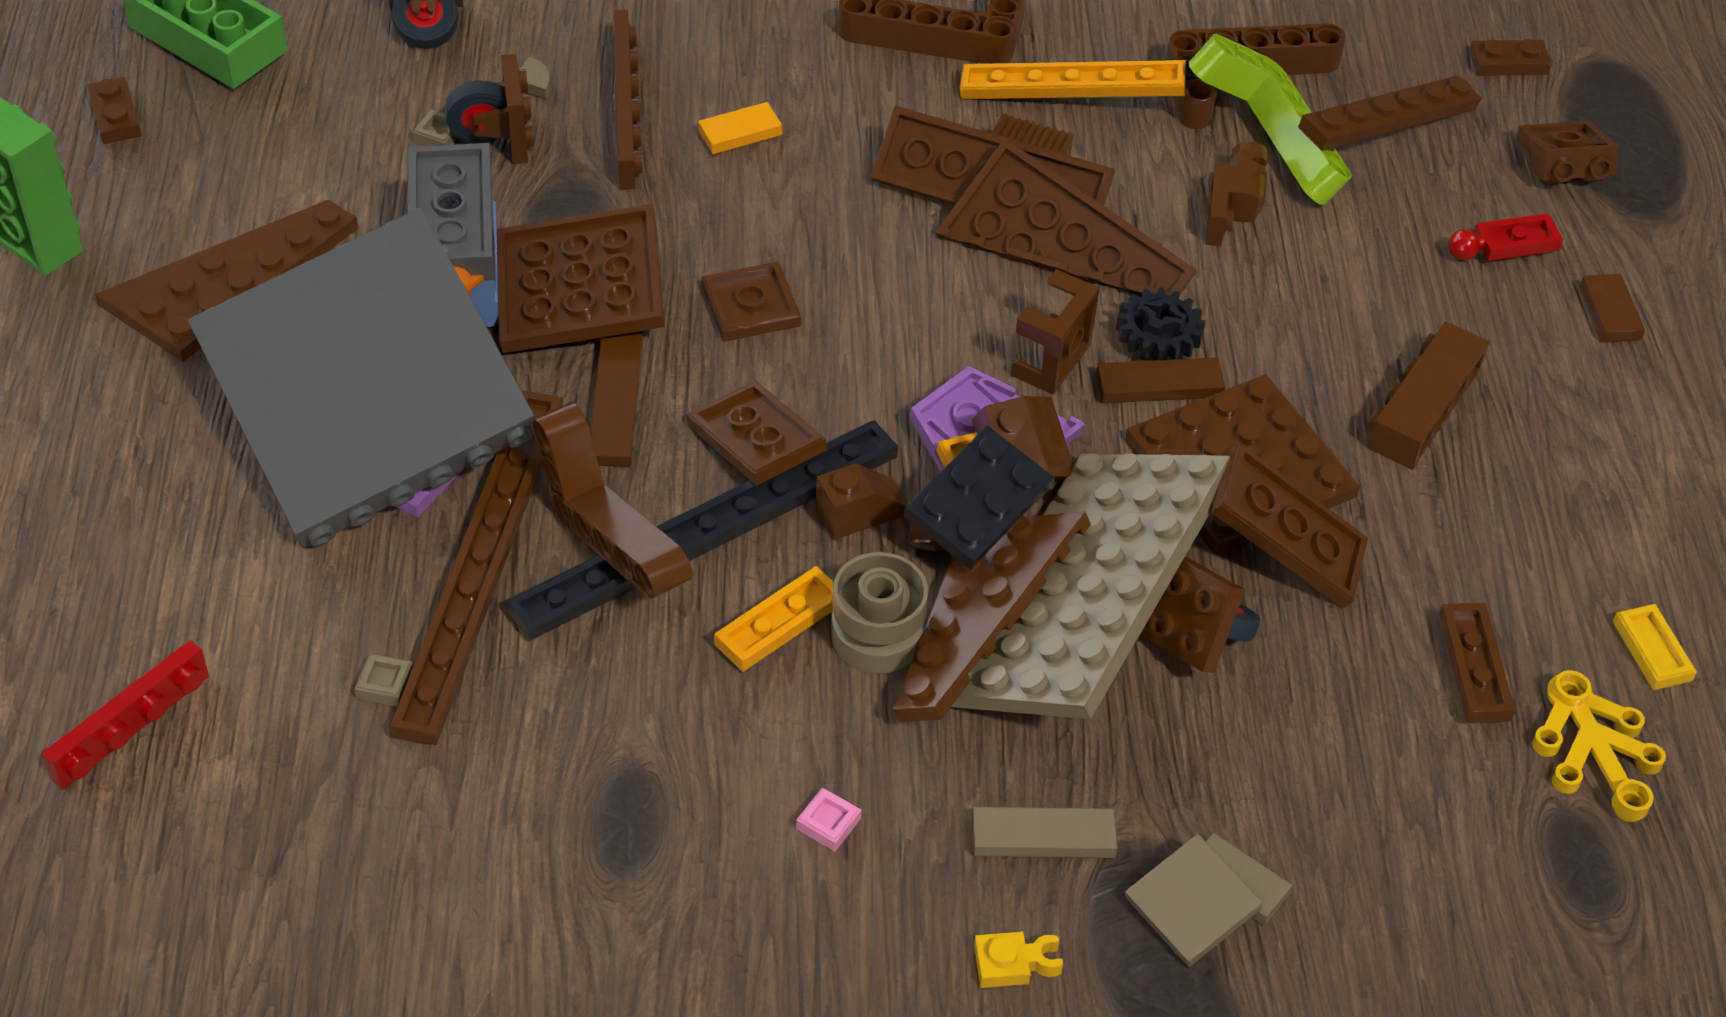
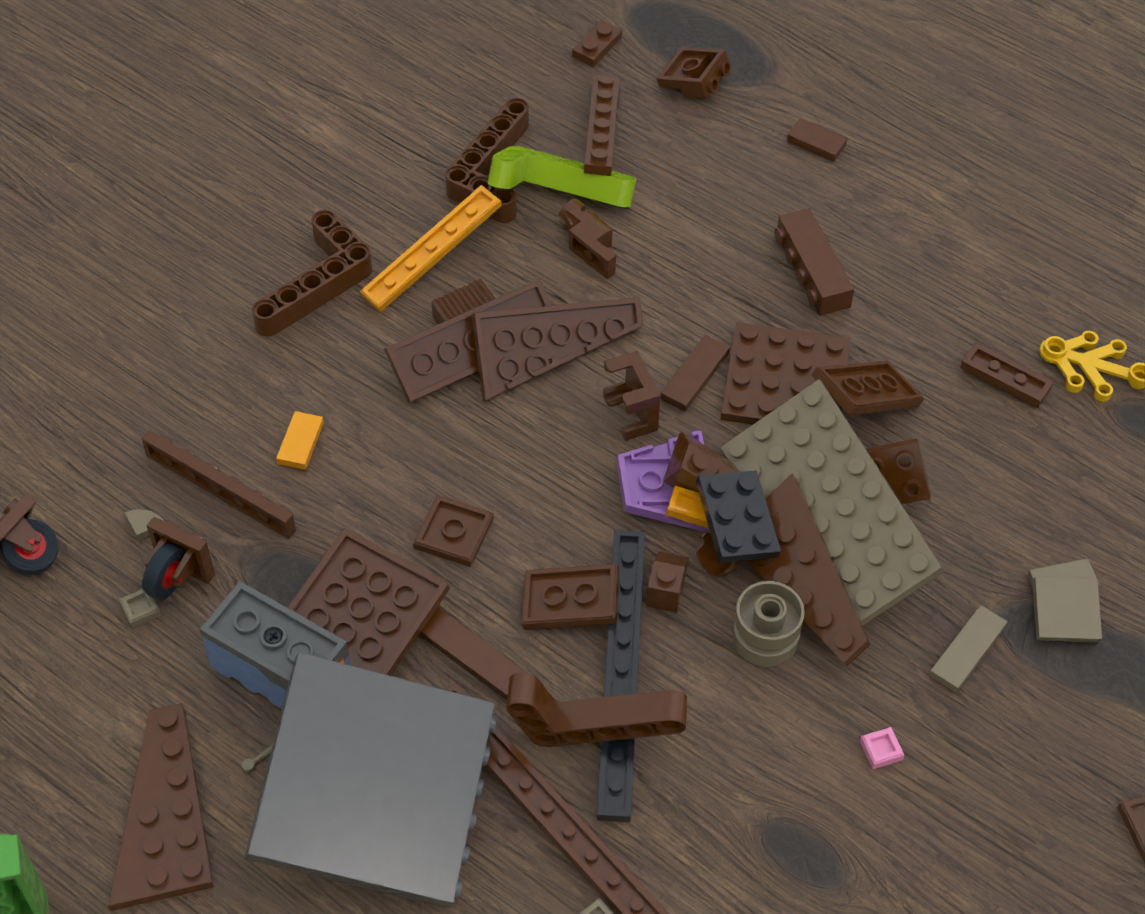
camera: 50 degrees left, 5 degrees up
(776, 619) = (722, 678): light orange plate -> none
(1007, 960) = (1039, 720): yellow plate -> none
(1160, 325) = (660, 343): black gear -> none
(1507, 238) = (732, 145): red plate -> none
(1654, 647) = (1050, 294): yellow tile -> none

